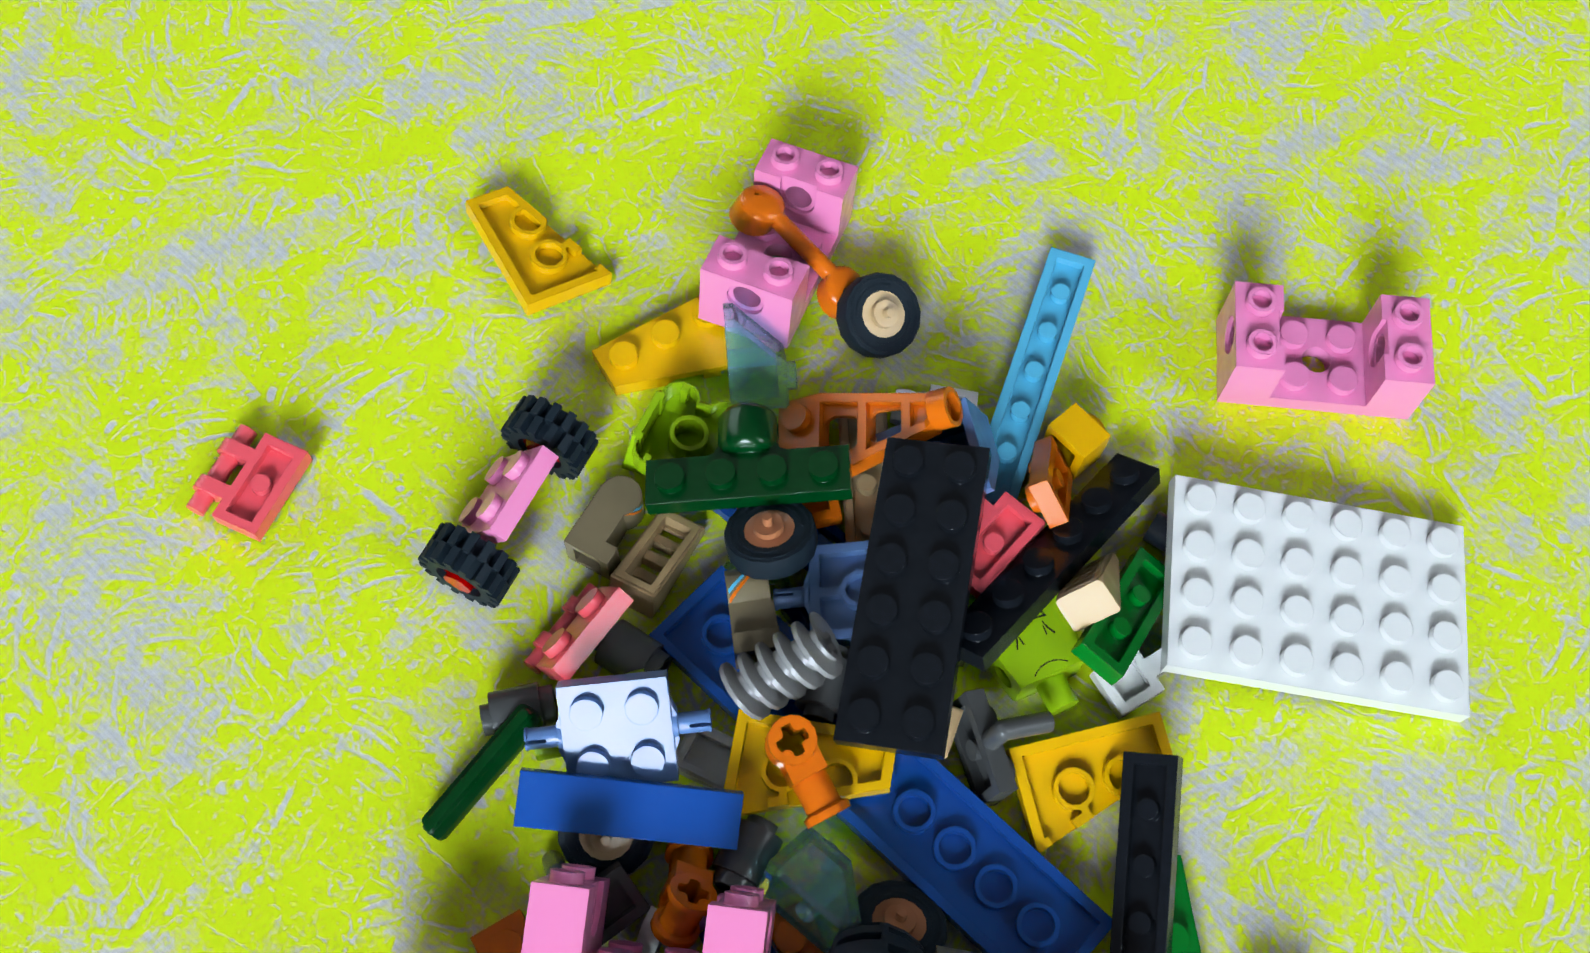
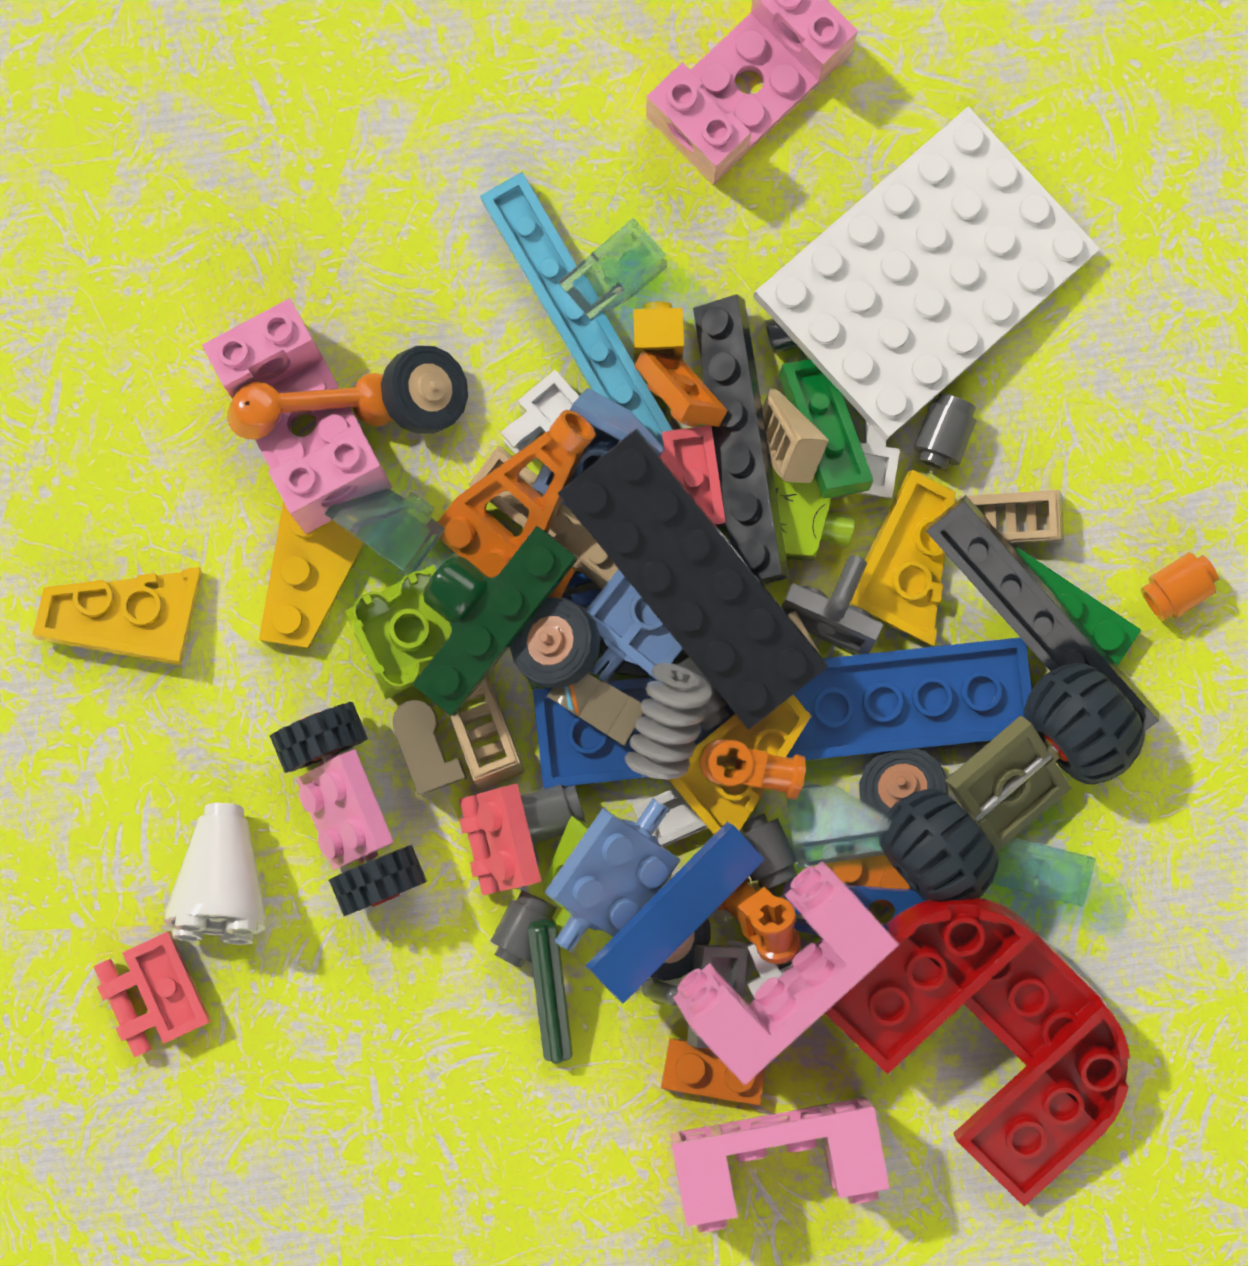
camera: 50 degrees left, 20 degrees up
(374, 454) = (218, 881): none -> white cone
(1091, 370) = (615, 271): none -> clear light blue slope
(1213, 715) = (945, 432): none -> dark grey brick
(1228, 834) = (1054, 514): none -> tan slope

